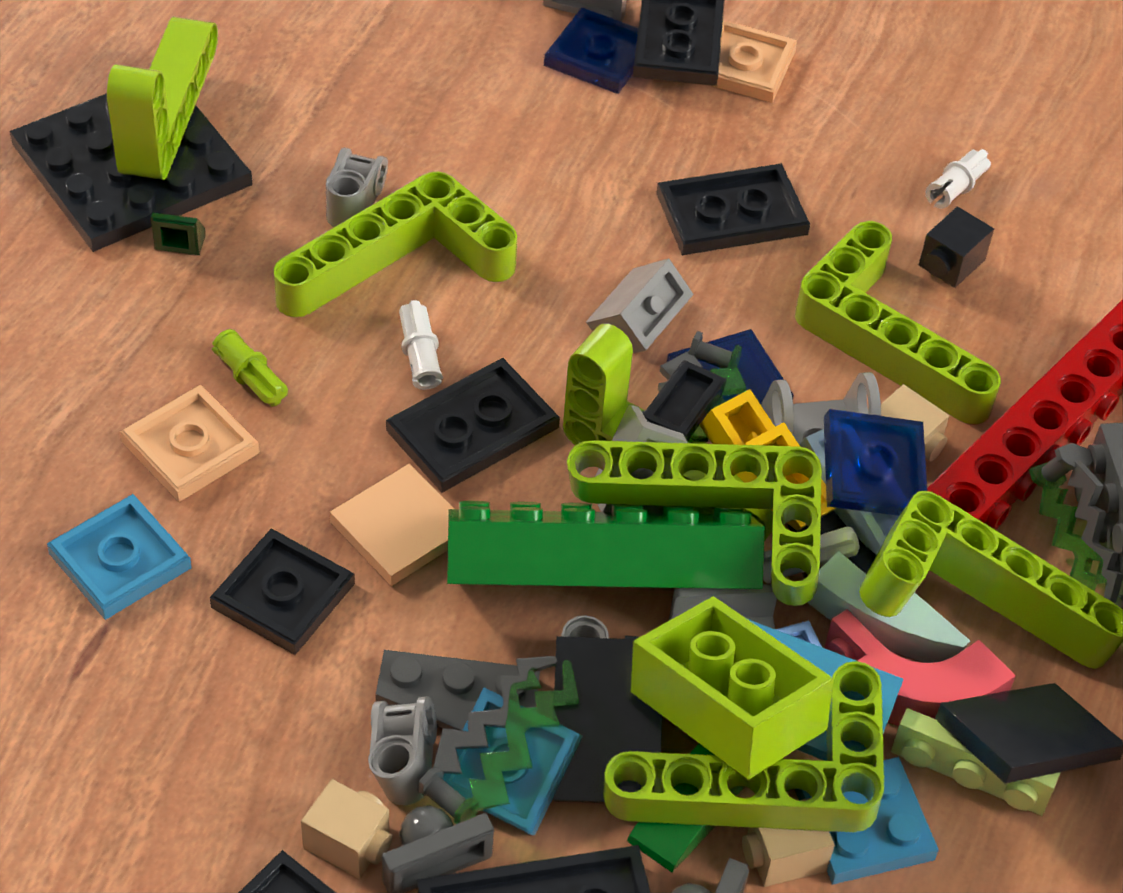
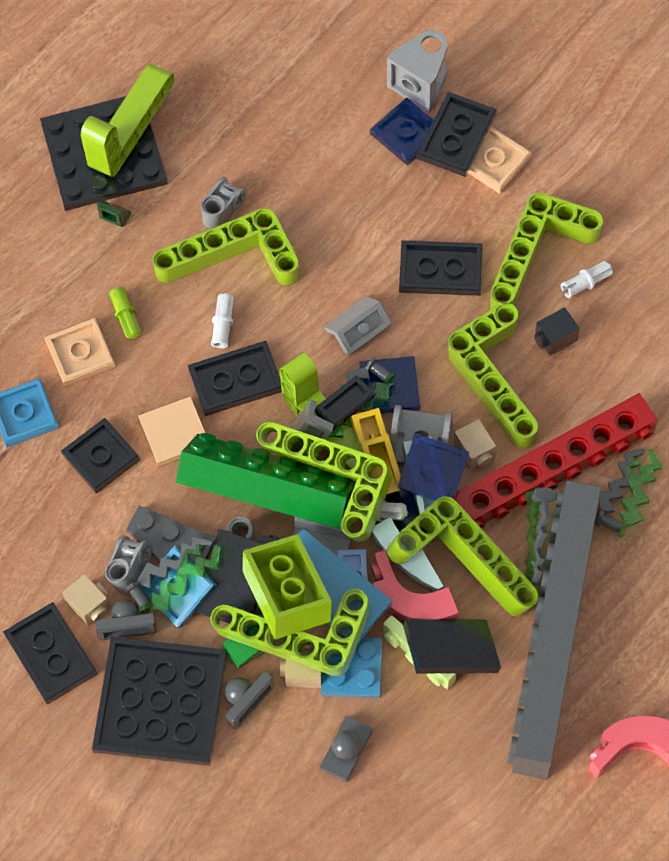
camera: 25 degrees right, 15 degrees up
(865, 109) = (529, 243): none -> lime beam

